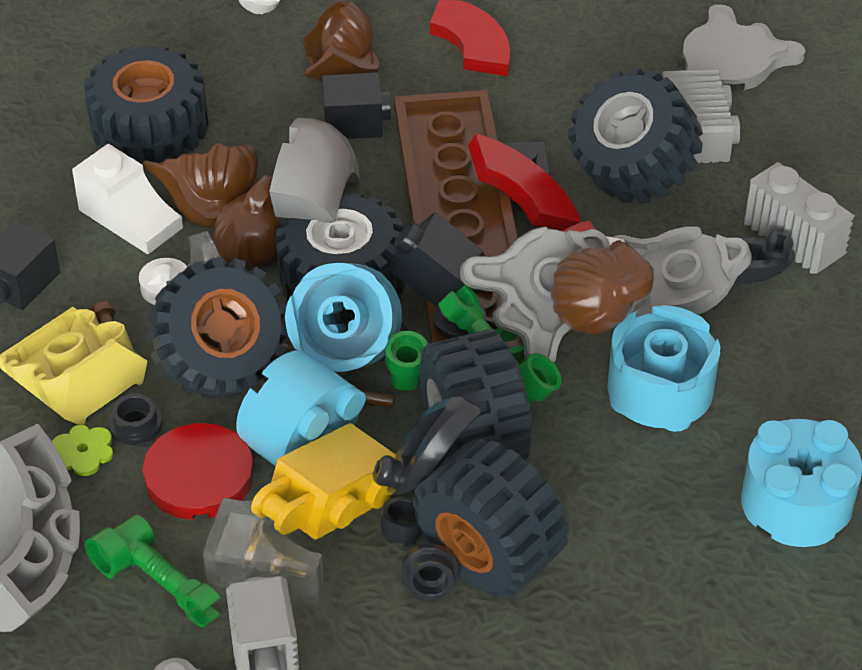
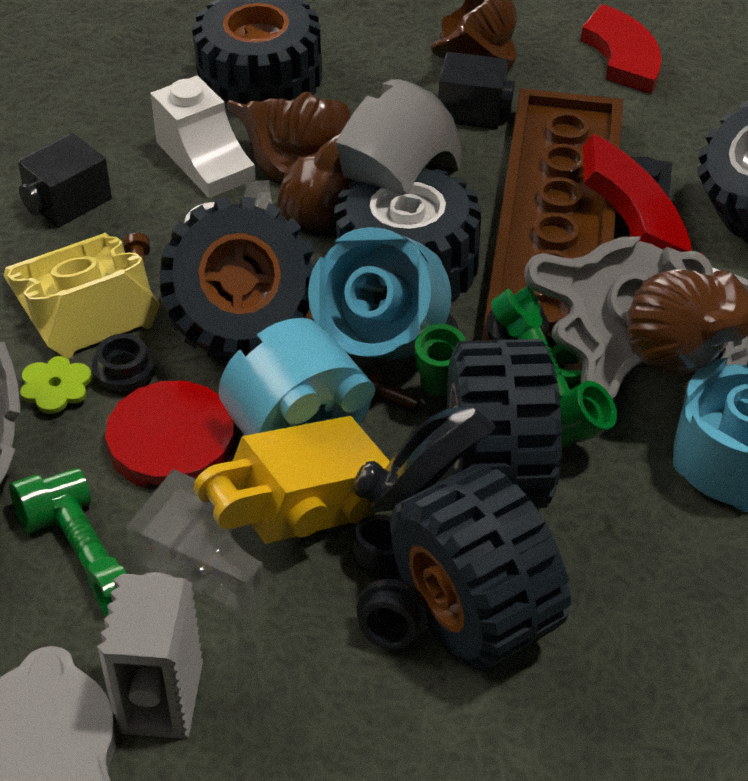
camera: 15 degrees right, 0 degrees up
(432, 257) = (500, 247): black brick -> none

